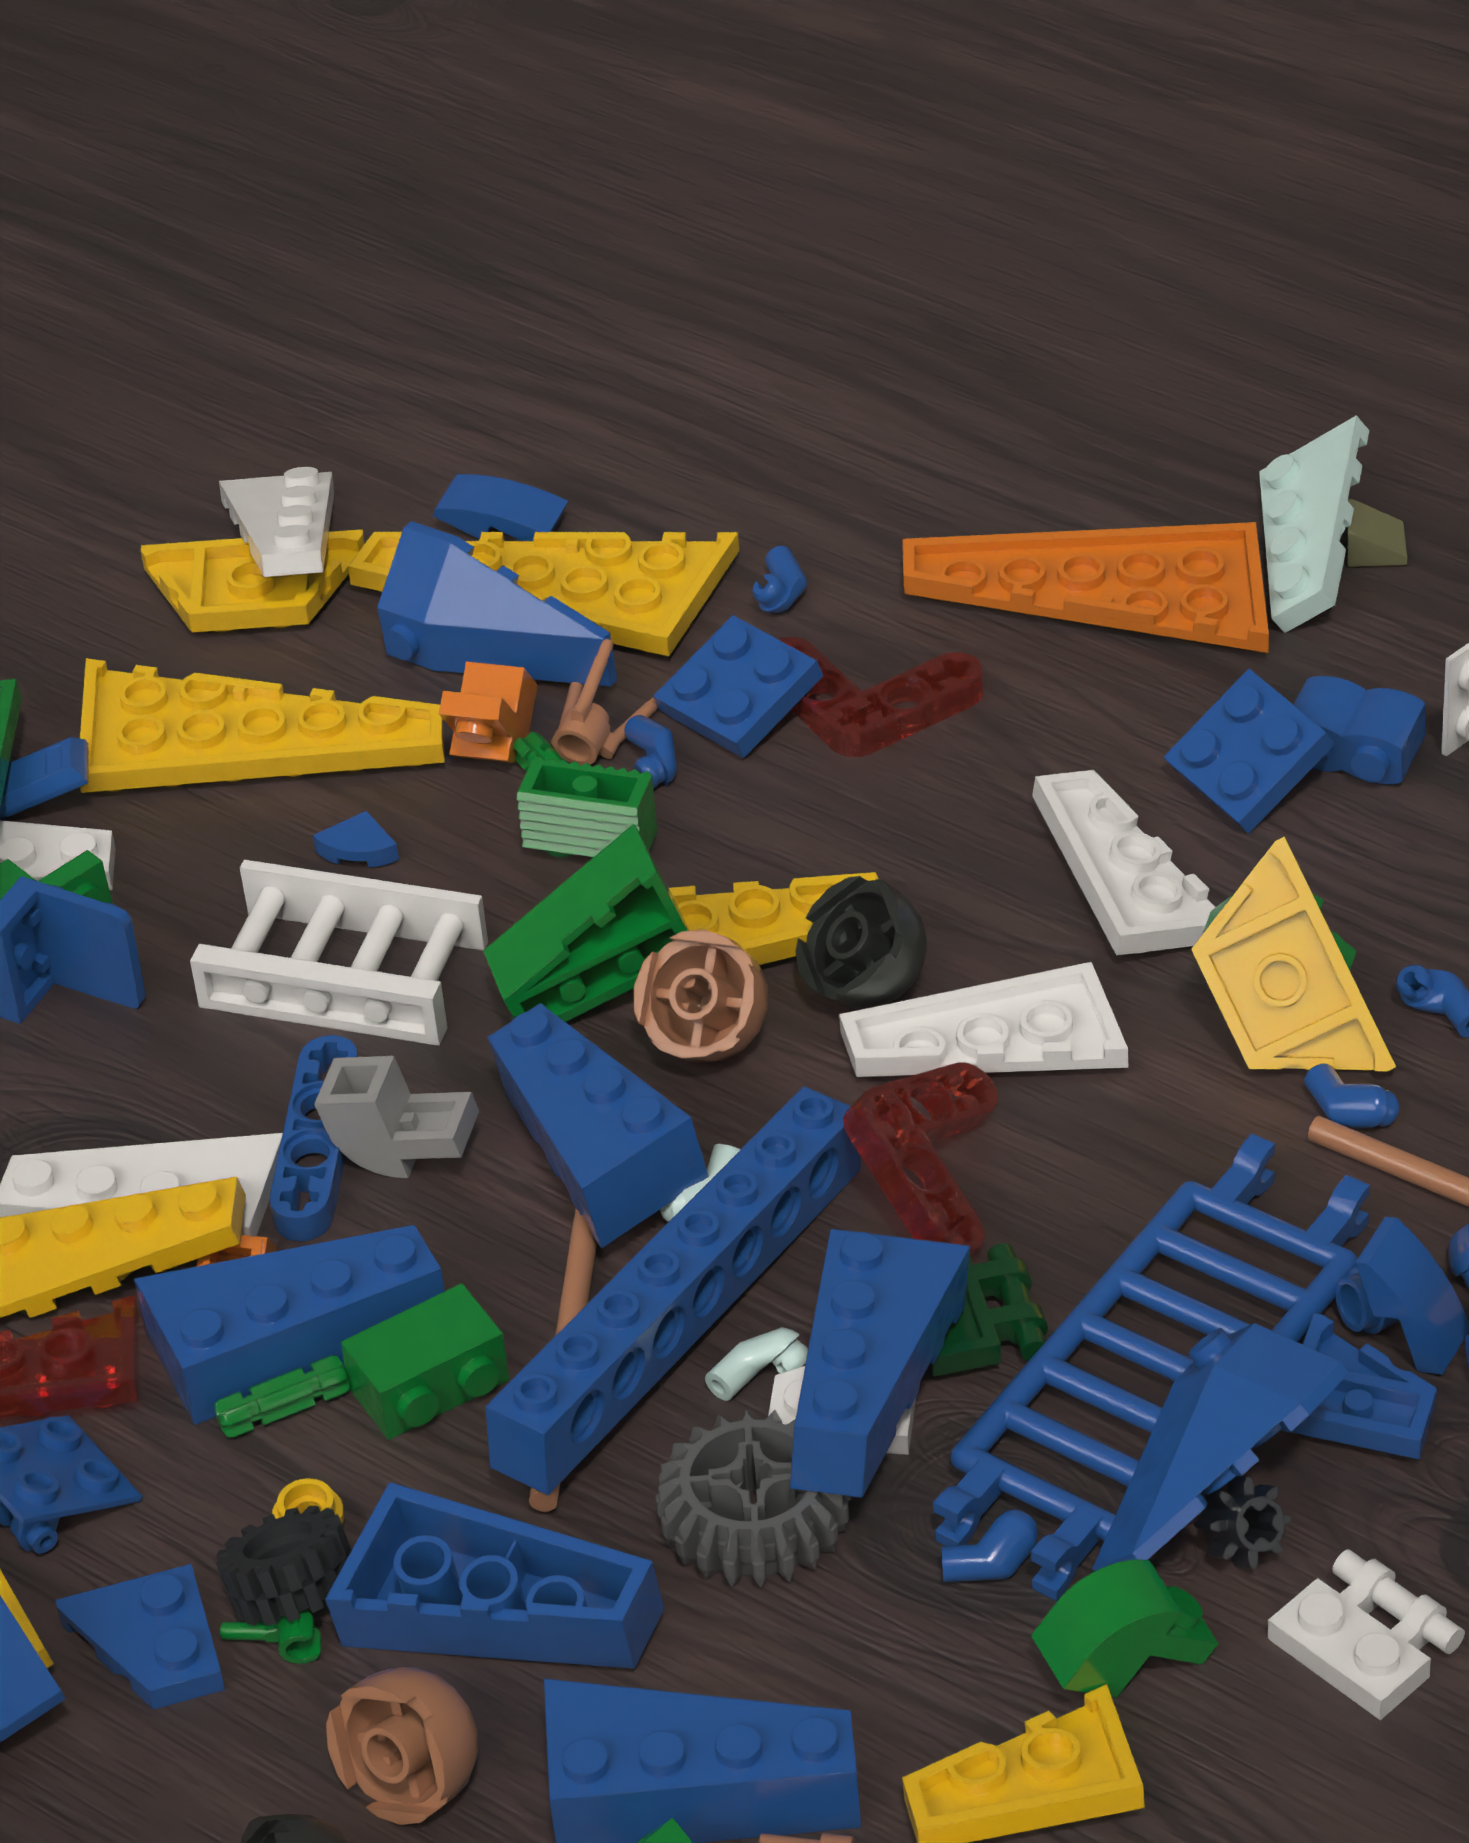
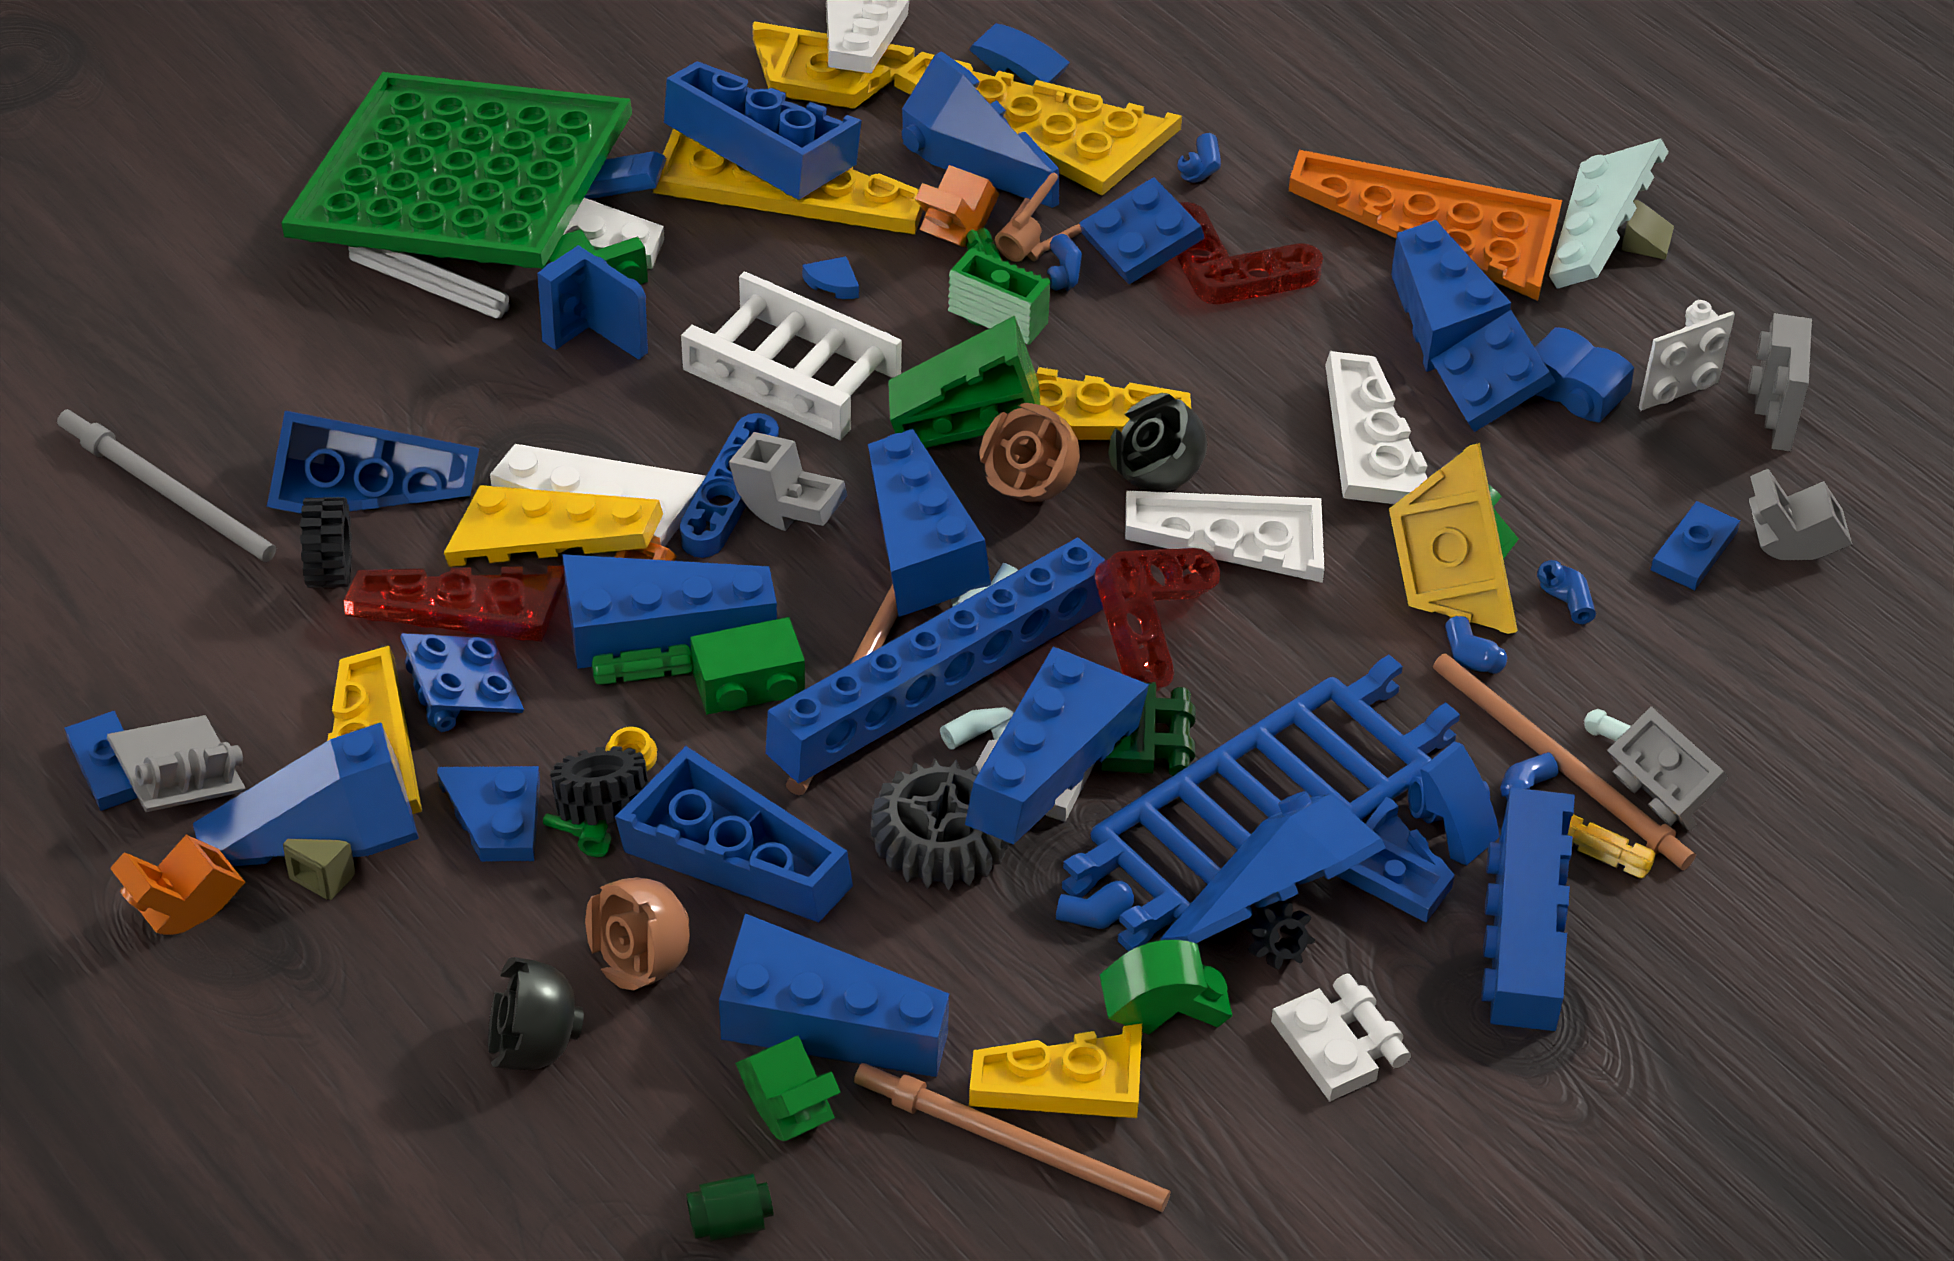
camera: 10 degrees right, 5 degrees up
(203, 677) = (760, 130): none -> blue wedge
(1148, 667) = (1442, 289): none -> blue wedge

